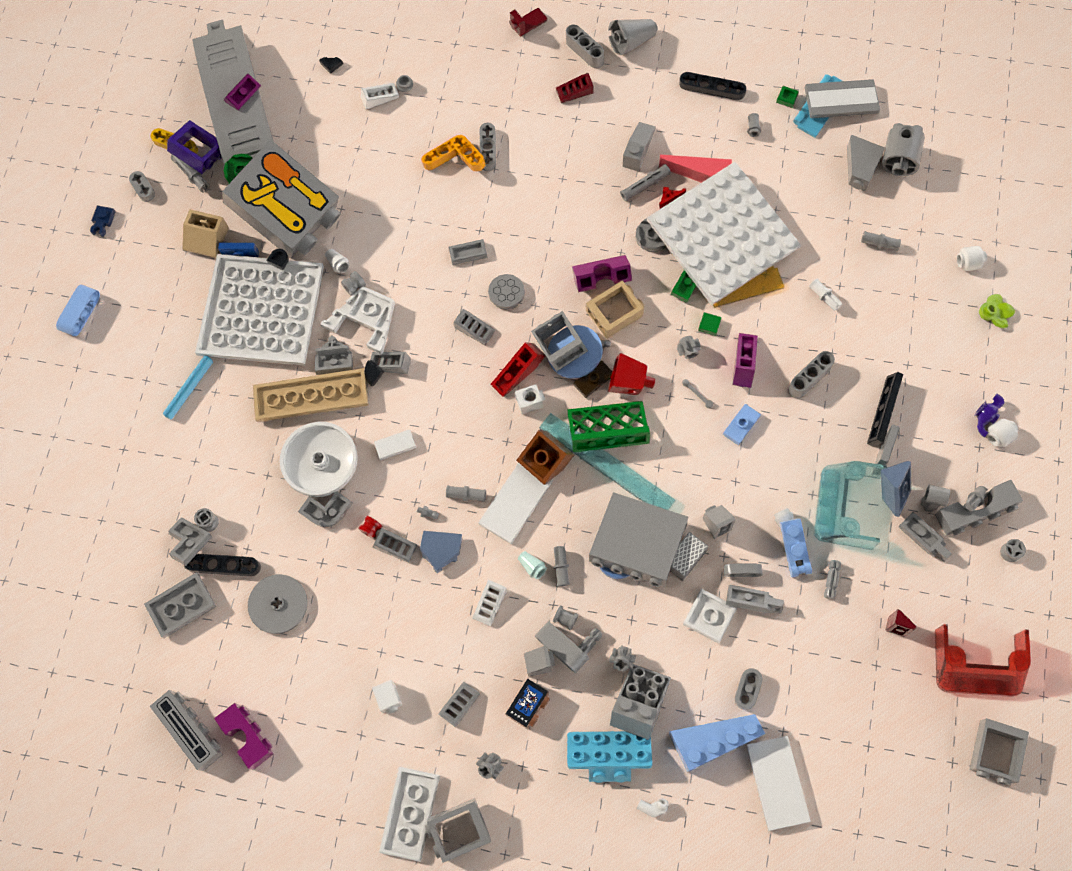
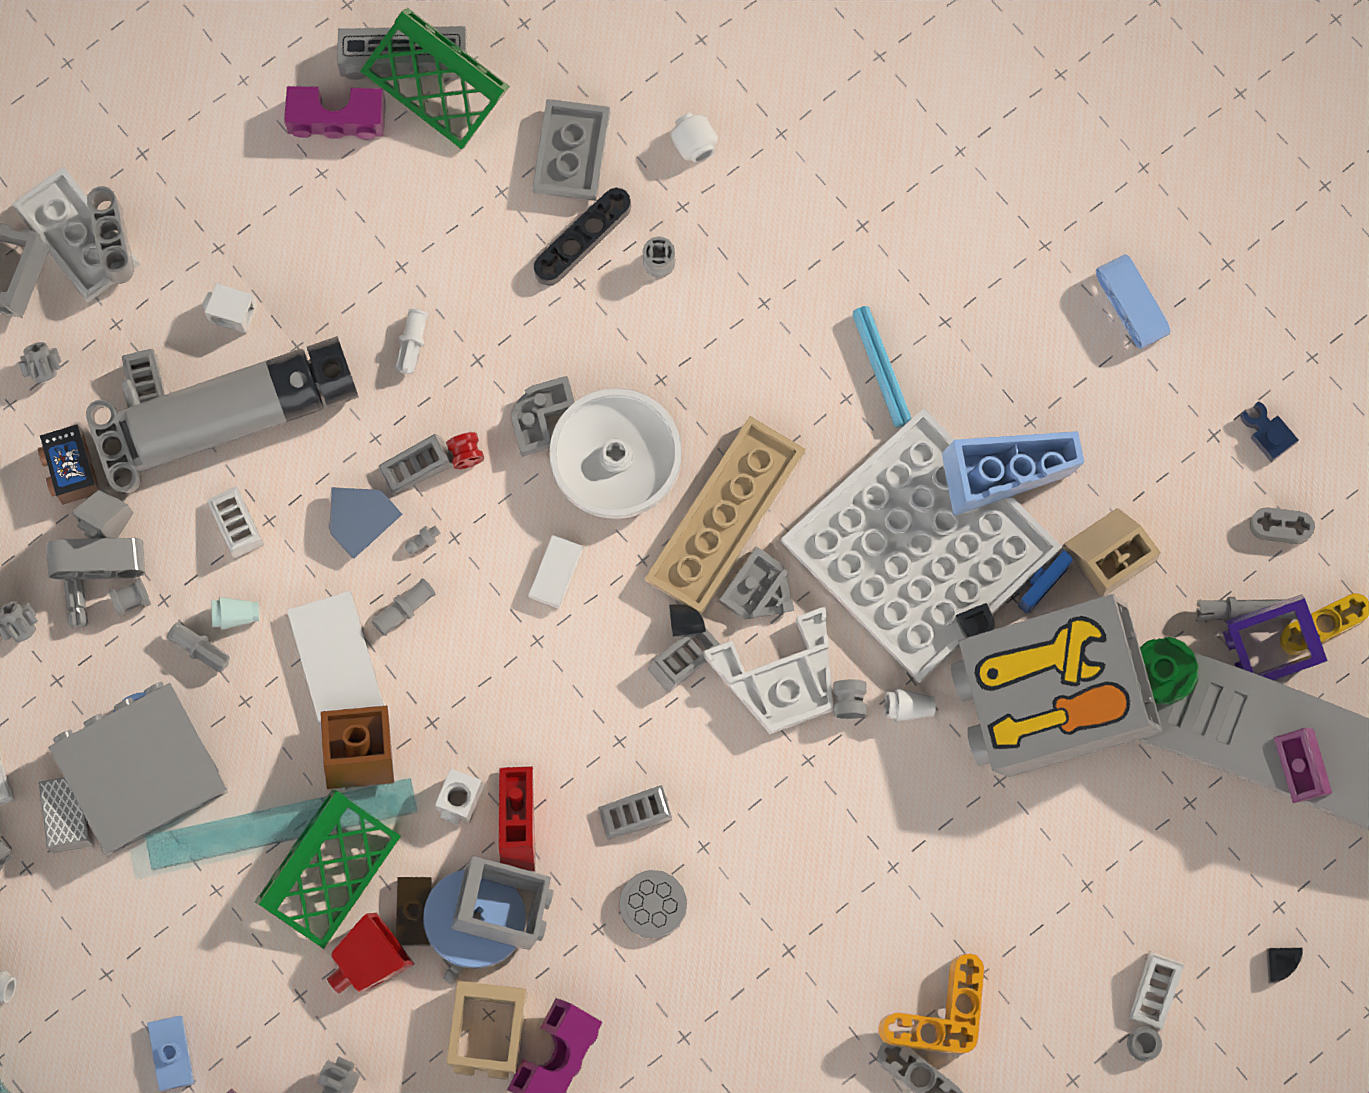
camera: 125 degrees right, 5 degrees up
(131, 553) = (694, 137): none -> white head
(170, 696) = (449, 55): none -> green fence
(191, 540) = (644, 221): light grey plate -> none
(200, 295) = (1004, 466): none -> light blue wedge
(288, 614) = (474, 290): light grey piece -> none
(336, 598) = (411, 341): none -> white axle
(386, 792) = (103, 222): none -> light grey beam
(442, 652) = (218, 410): none -> light grey piece
(467, 252) = (765, 903): light grey tile -> none
(708, 403) = (240, 1037): light grey hinge -> none
(718, 520) = (69, 893): light grey slope -> none

